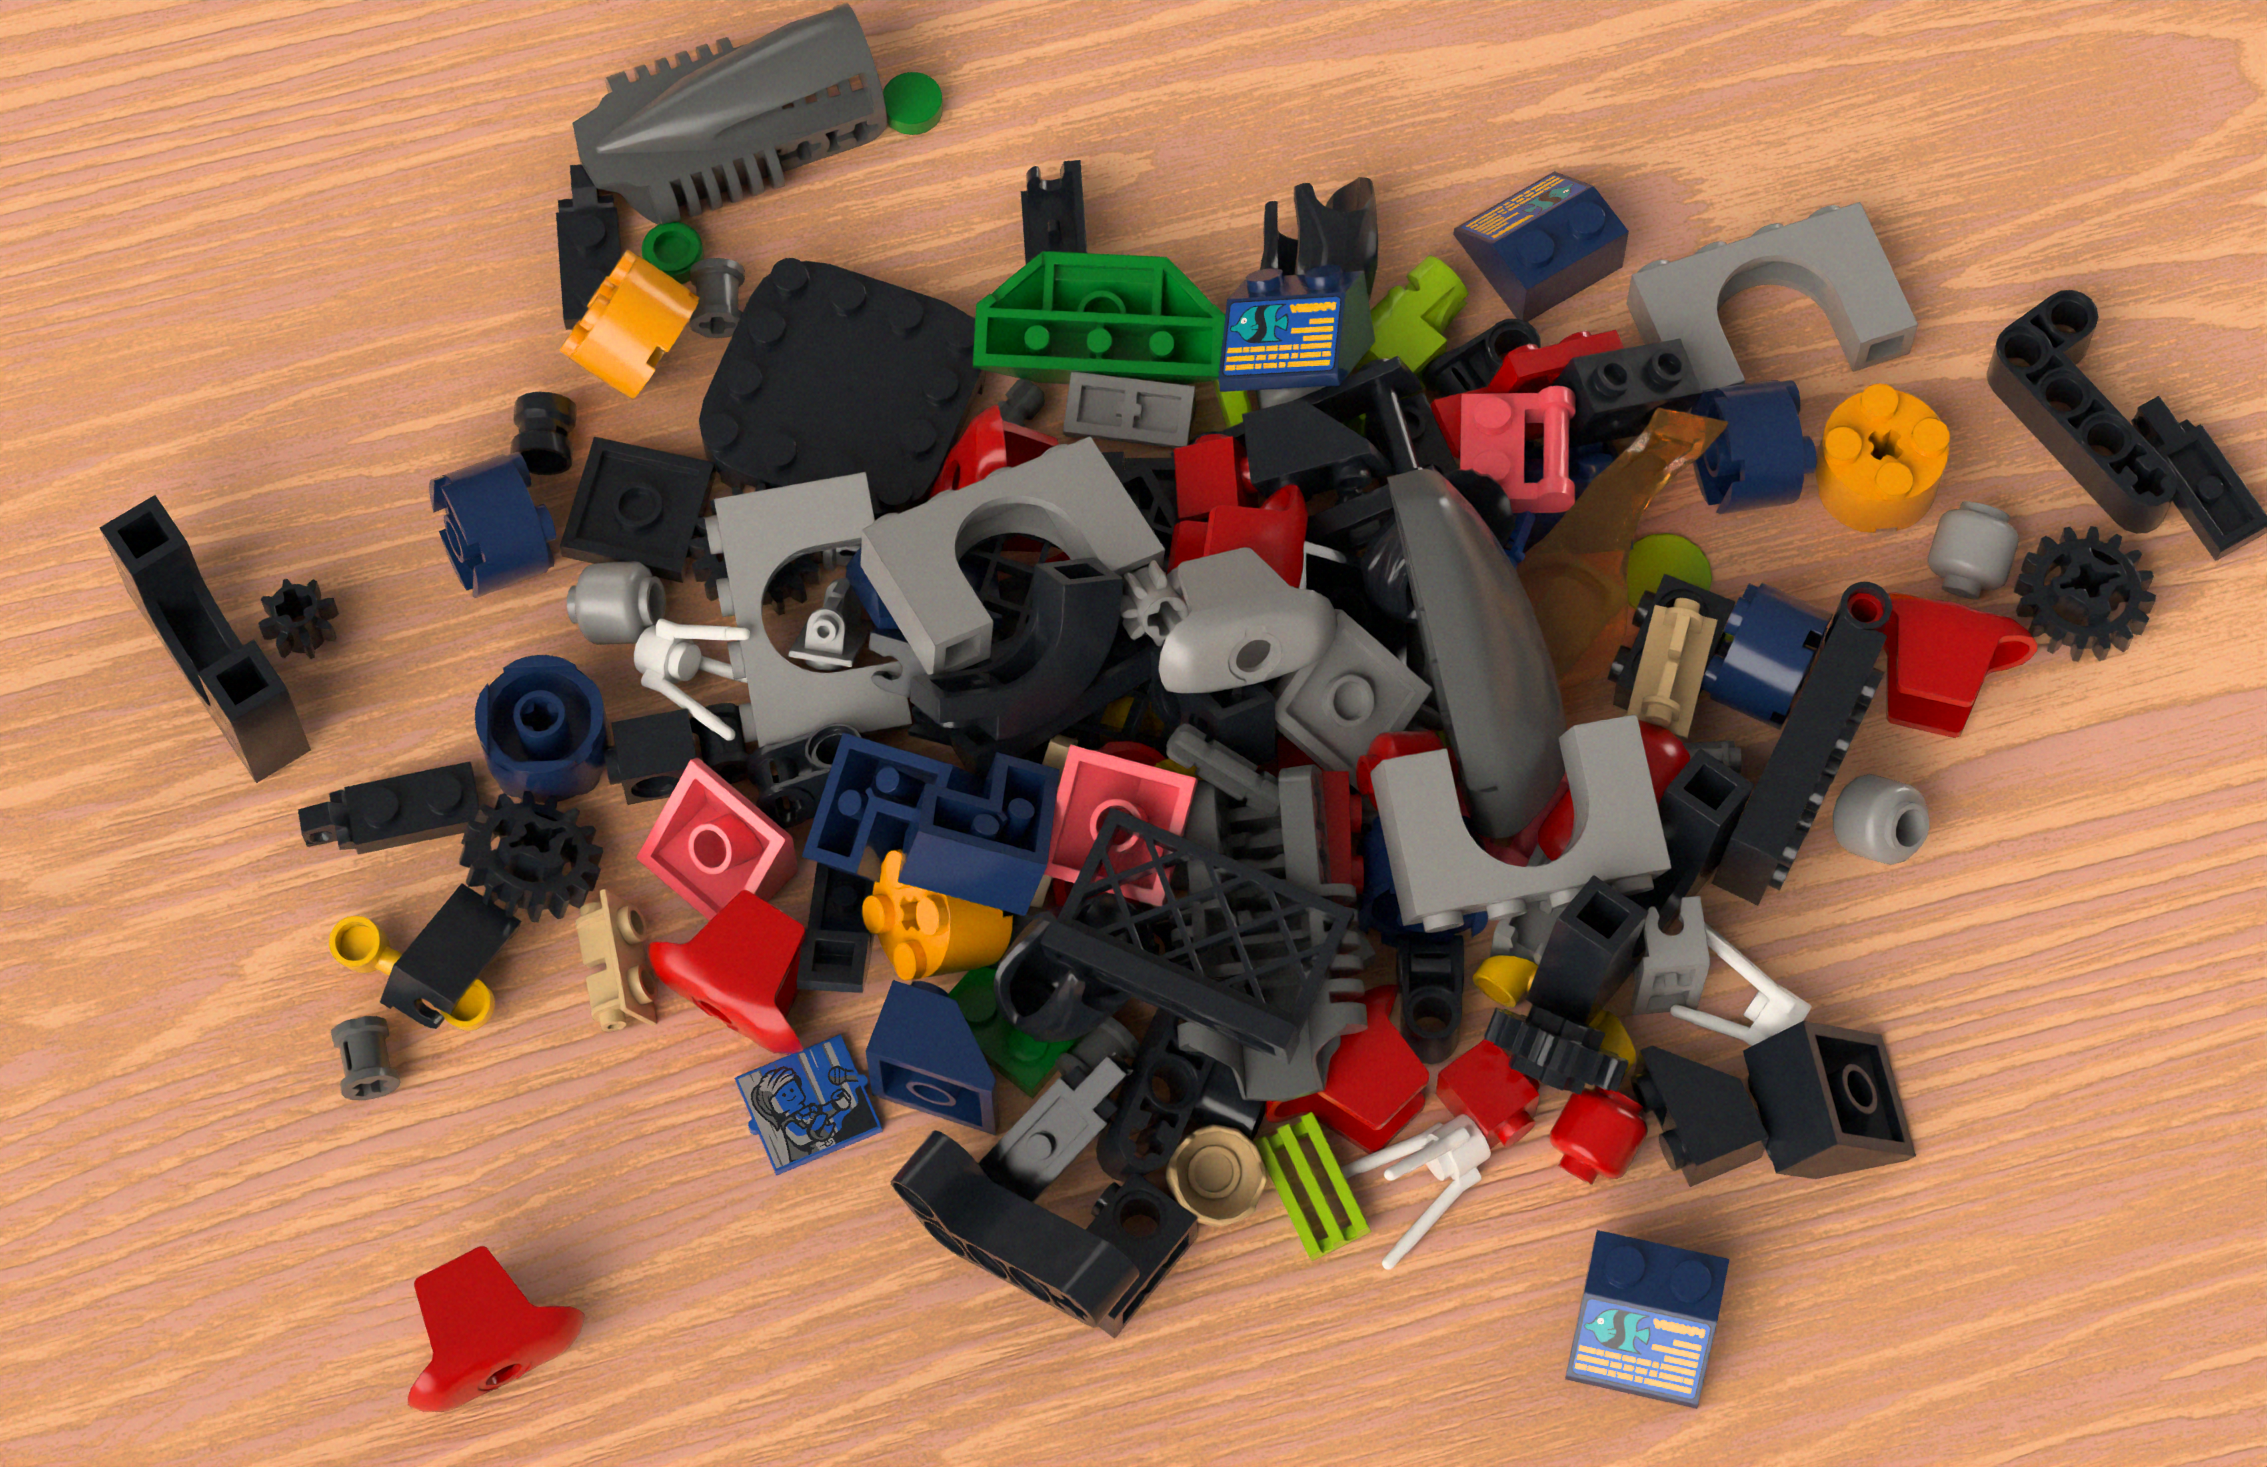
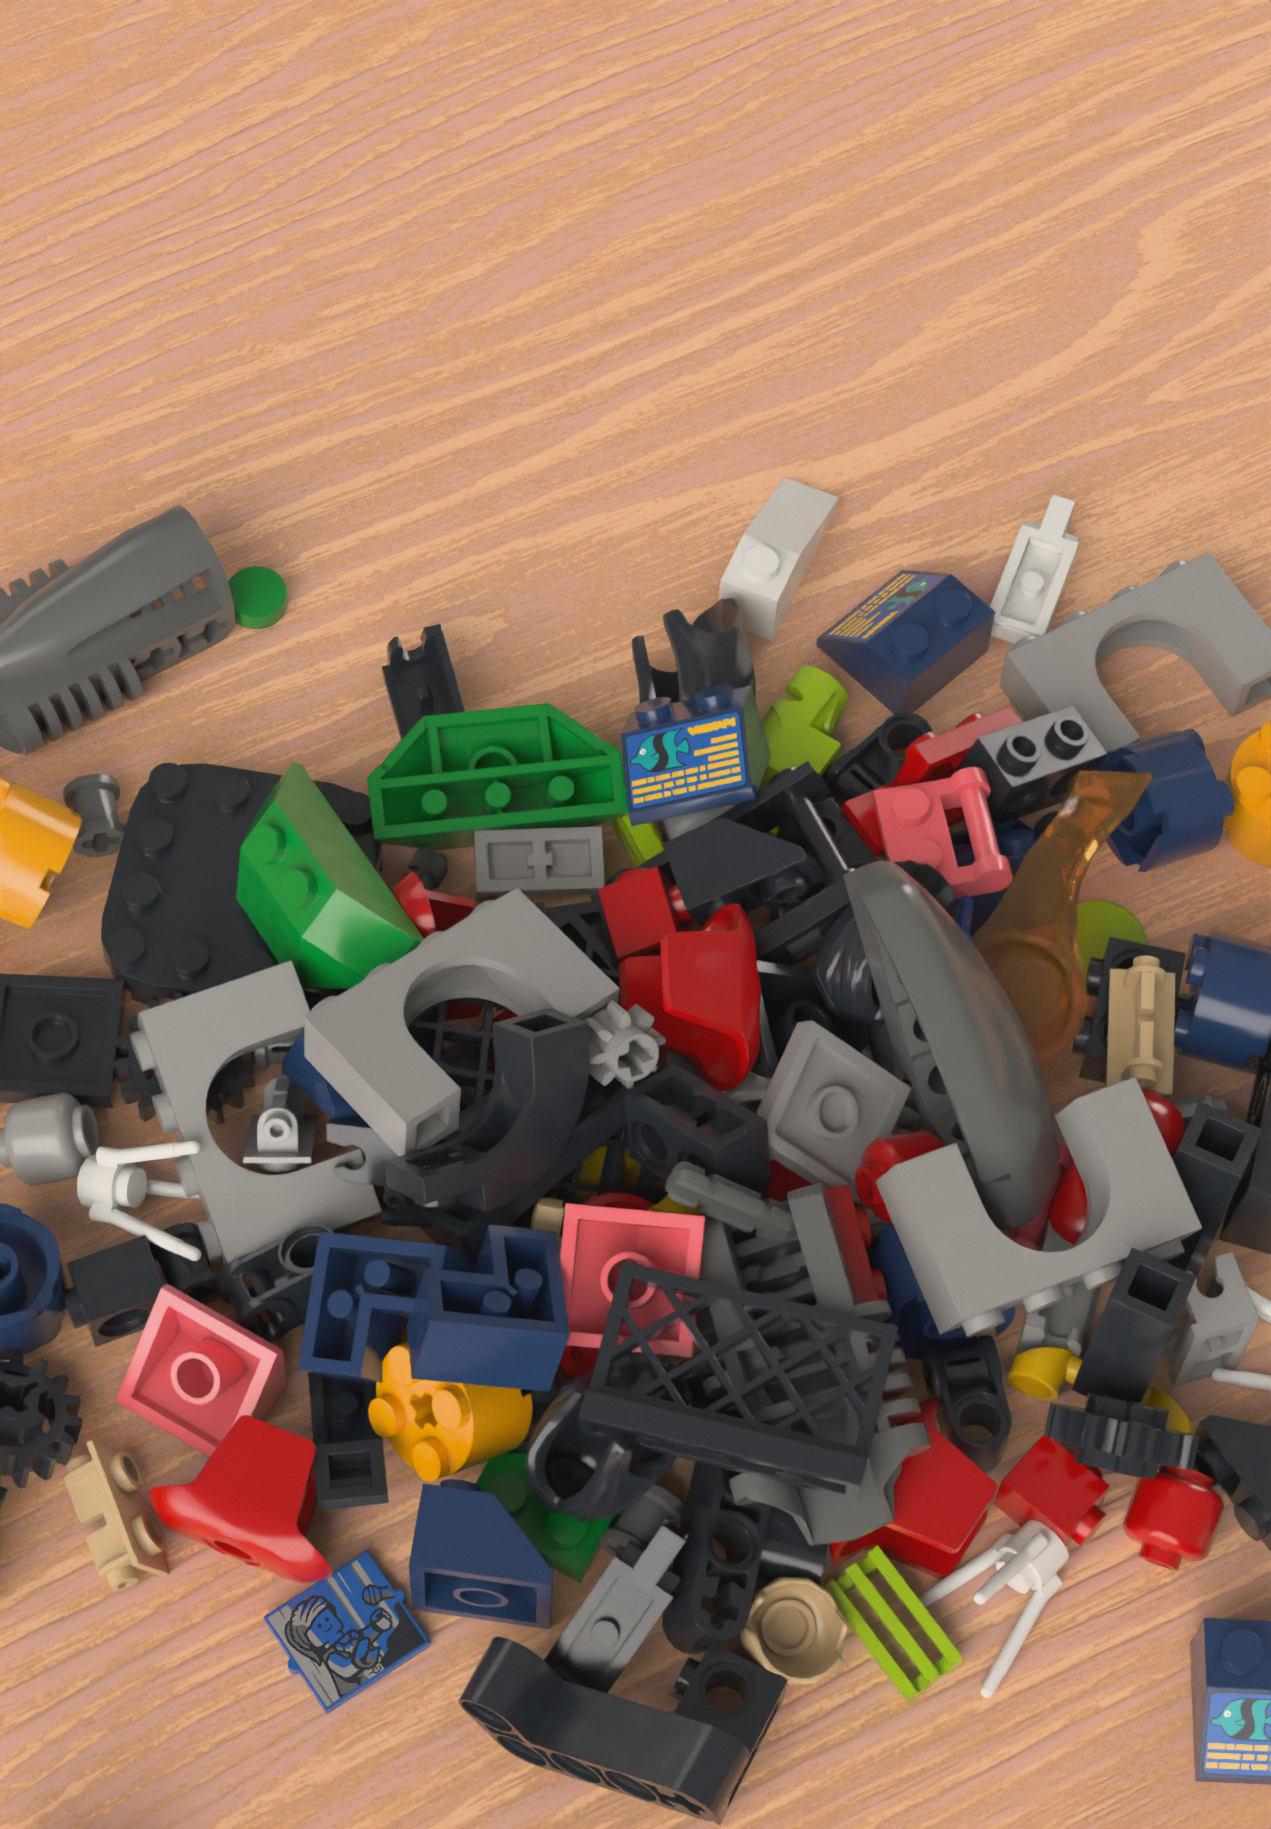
camera: 15 degrees left, 5 degrees down
(673, 249) = (42, 771): green tile -> none
(905, 406) = (317, 890): none -> green wedge
(1242, 625) = (721, 1050): light grey piece -> none
(1430, 137) = (776, 555): none -> white slope
(1685, 197) = (1035, 574): none -> white hinge

